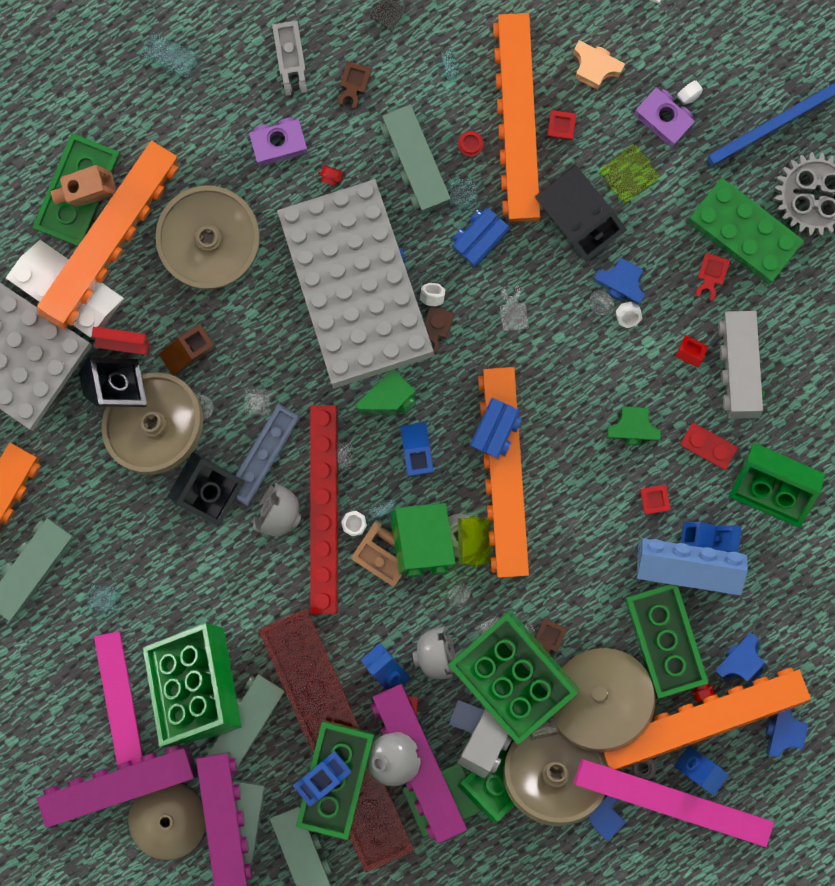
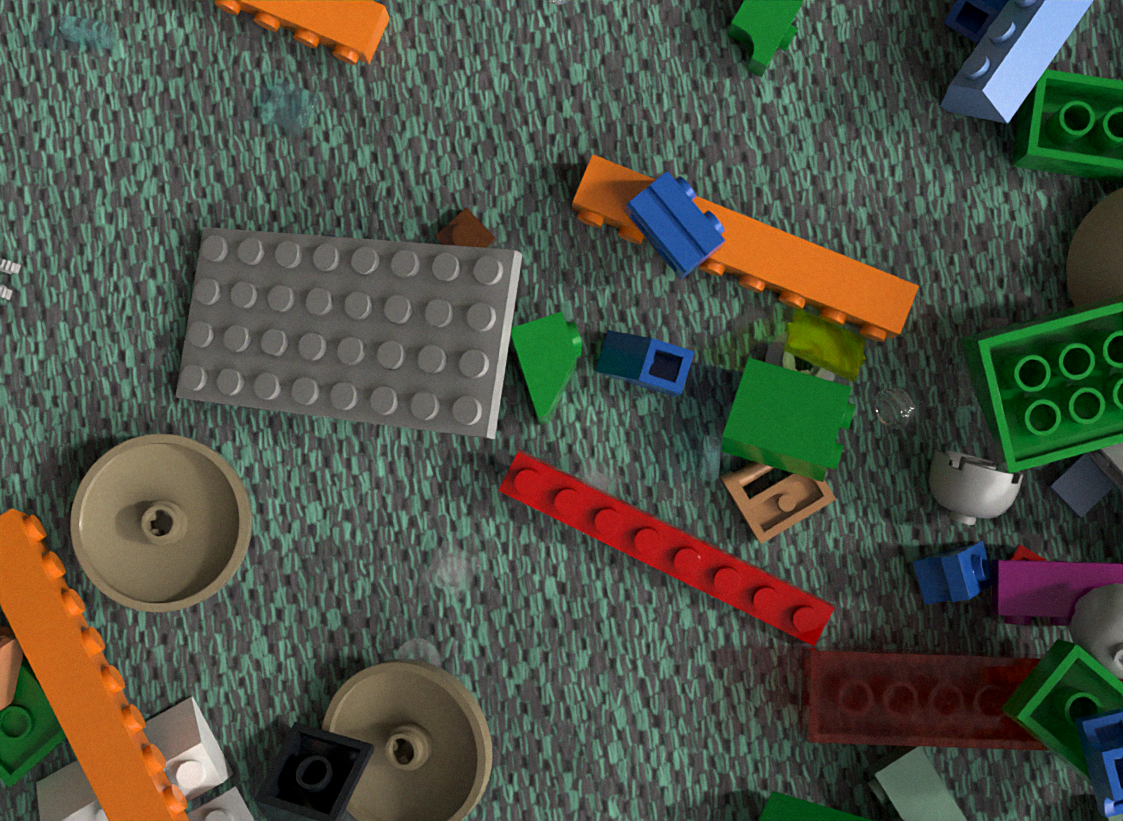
camera: 65 degrees left, 0 degrees up
(121, 340) = (252, 736): red slope -> none
(187, 349) = (318, 637): reddish brown slope -> none
(205, 489) = (547, 715): black slope -> none
(265, 451) = (536, 600): sand blue tile -> none
(268, 153) = (83, 366): medium lavender brick -> none
(278, 512) = (644, 624): light grey cylinder -> none
(330, 175) = (163, 290): red plate -> none
(354, 81) = (40, 186): reddish brown plate -> none
(354, 523) = (709, 512): white tile -> none
(415, 158) = (203, 151): sand green brick -> none
(432, 294) = (420, 224): white tile -> none
(470, 143) = (223, 60): red plate -> none
(480, 236) = (370, 112): blue brick -> none
(514, 313) = (509, 121): clear plate -> none
(550, 635) = (1019, 299): reddish brown plate -> none
(655, 499) = (889, 48): red plate -> none

